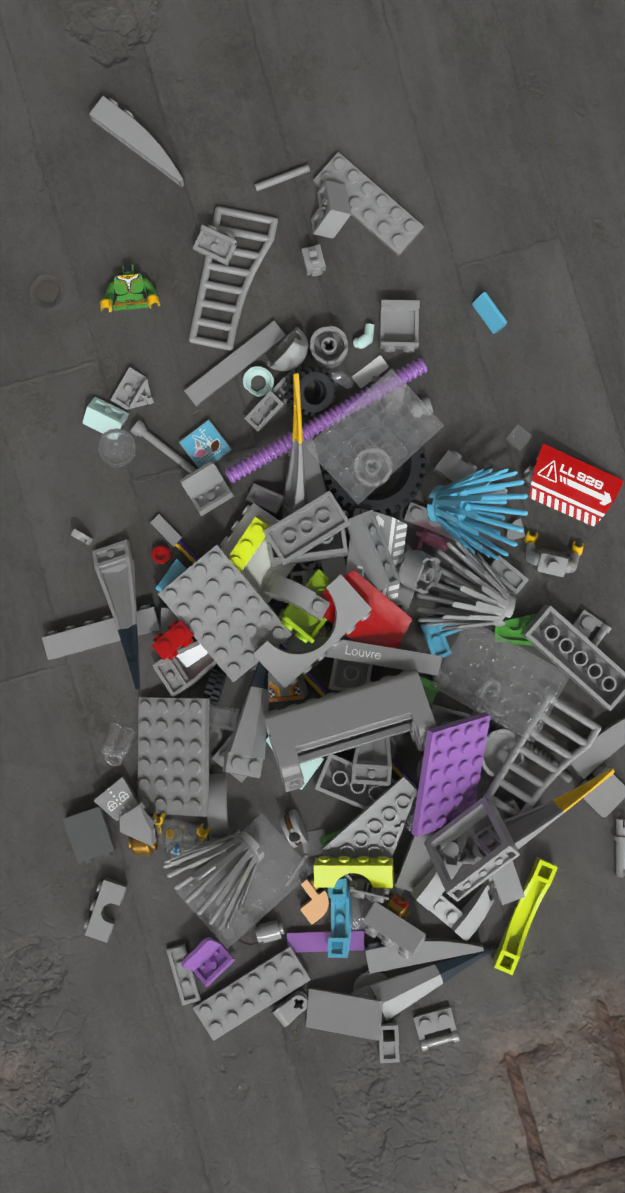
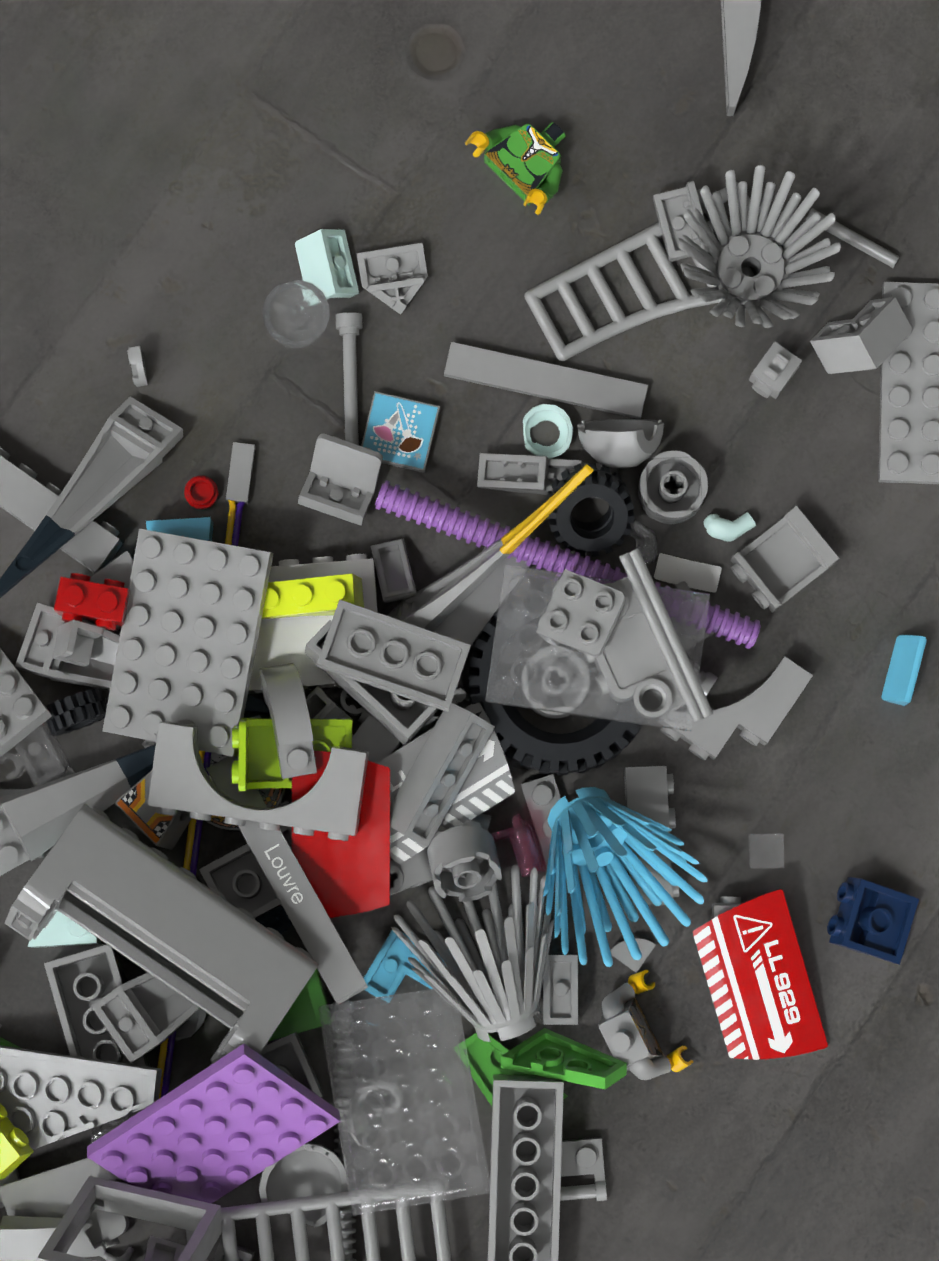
camera: 50 degrees right, 5 degrees down
(184, 662) = (76, 642): none -> light grey panel
(259, 217) = (757, 244): none -> light grey plant
(356, 431) = (581, 614): none -> light grey bracket
(391, 418) = (645, 652): none -> light grey brick
(457, 393) = (754, 715): none -> light grey arch
(538, 598) = (565, 1060): none -> bright green wing
(586, 416) = (872, 919): none -> dark blue plate

